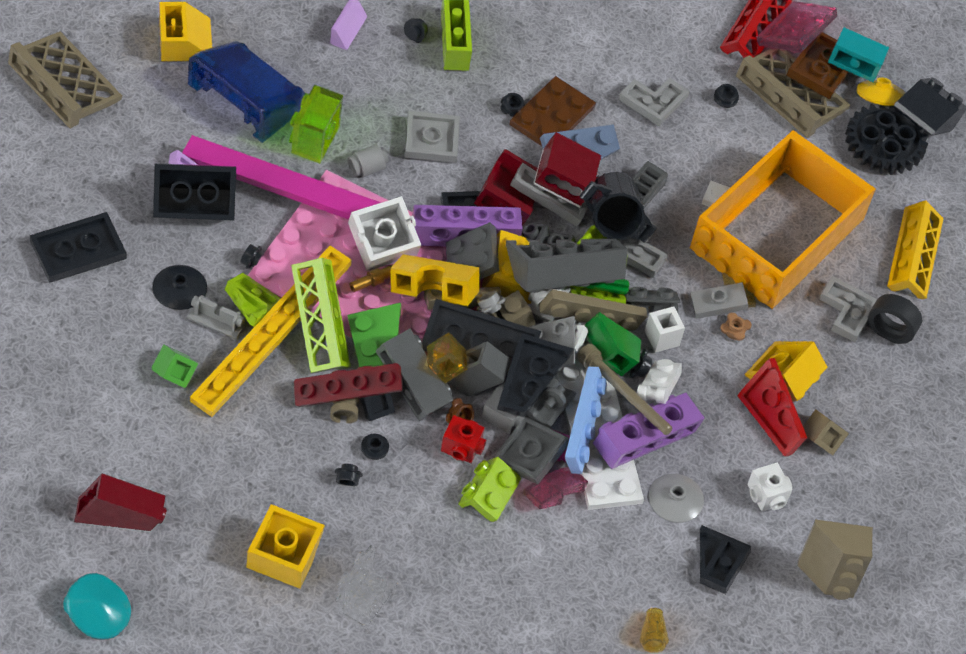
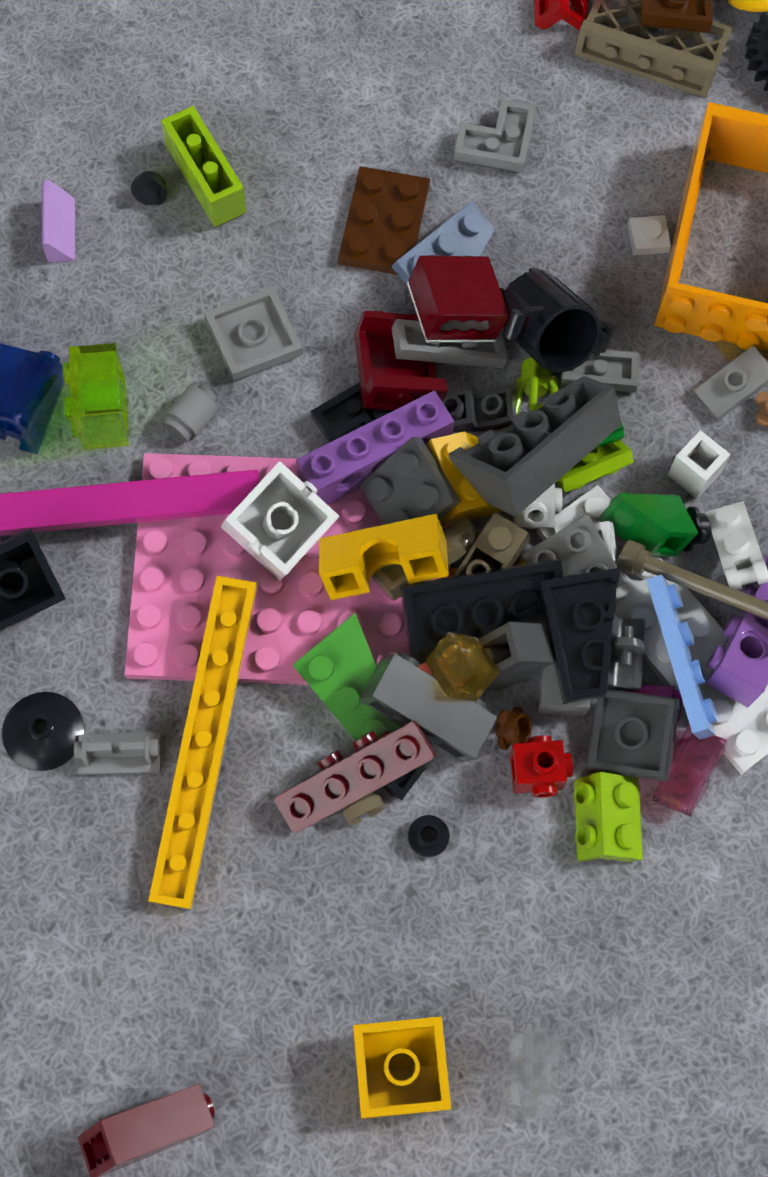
camera: 20 degrees left, 15 degrees up
(174, 366) = (101, 862): bright green panel -> none
(250, 297) = (151, 703): lime wing -> none
(251, 256) = (116, 636): black plate -> none
(330, 311) = (273, 680): lime fence -> none
(348, 475) = (419, 901): black plate -> none
(373, 278) = (296, 587): pearl gold bar -> none
(490, 302) = (472, 553): light grey plate -> none
(512, 99) = (330, 226): black plate -> none
(585, 308) = (595, 492): dark tan plate -> none
(653, 177) = (558, 250): dark grey slope -> none
(659, 299) = (667, 422): dark grey hinge -> none
(726, 96) = (581, 88): black plate -> none

